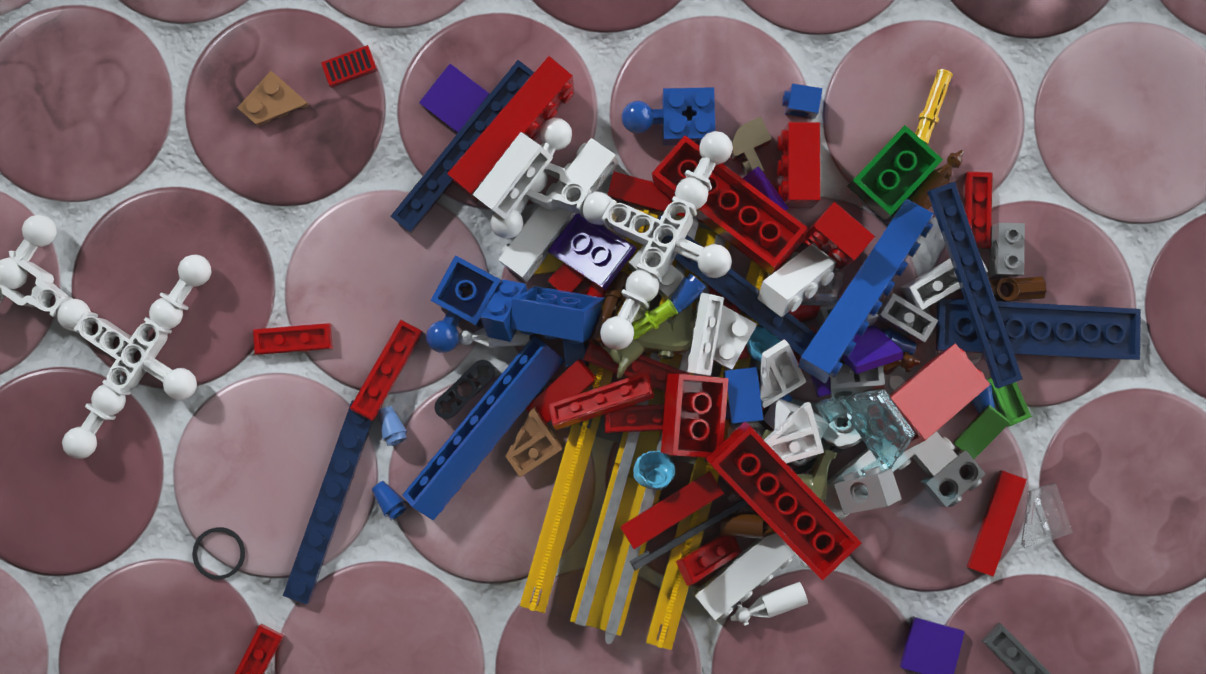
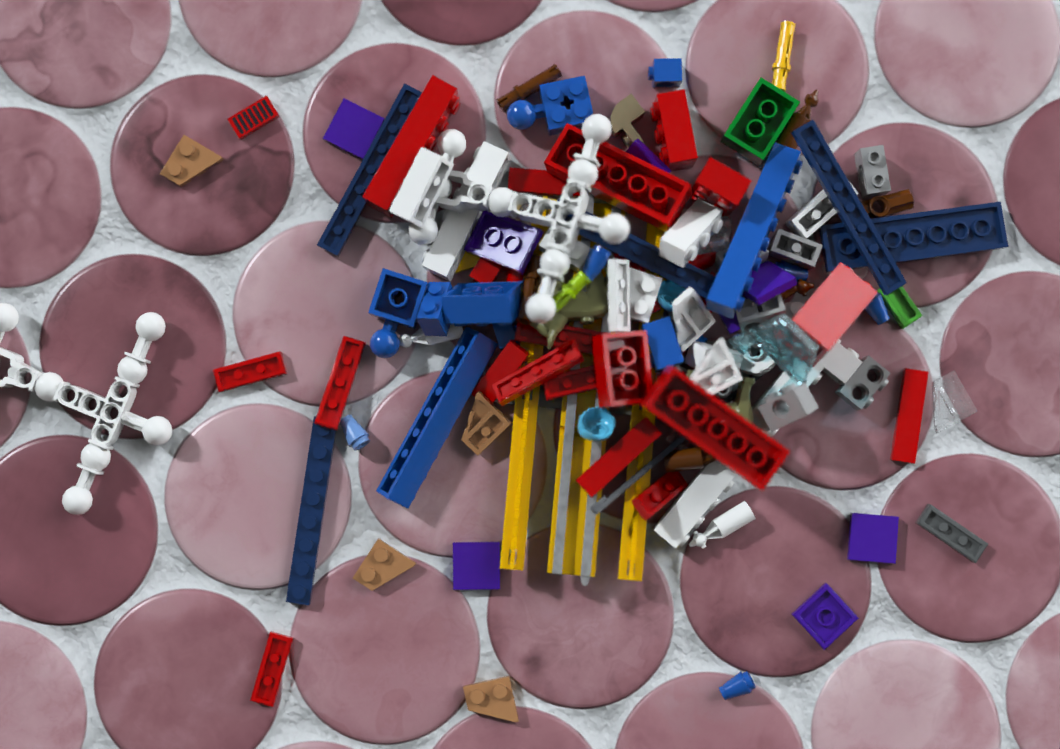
camera: 15 degrees left, 0 degrees up
(195, 549) = (200, 569): black piece -> none
(389, 501) = (365, 499): blue cone -> none
(394, 576) = (382, 565): none -> medium nougat wing
(464, 378) = (397, 397): black beam -> none
(495, 595) = (476, 565): none -> dark purple tile
(651, 89) = (528, 88): none -> reddish brown pin
(979, 206) = (841, 138): red tile -> none
(981, 431) = (880, 336): bright green tile -> none

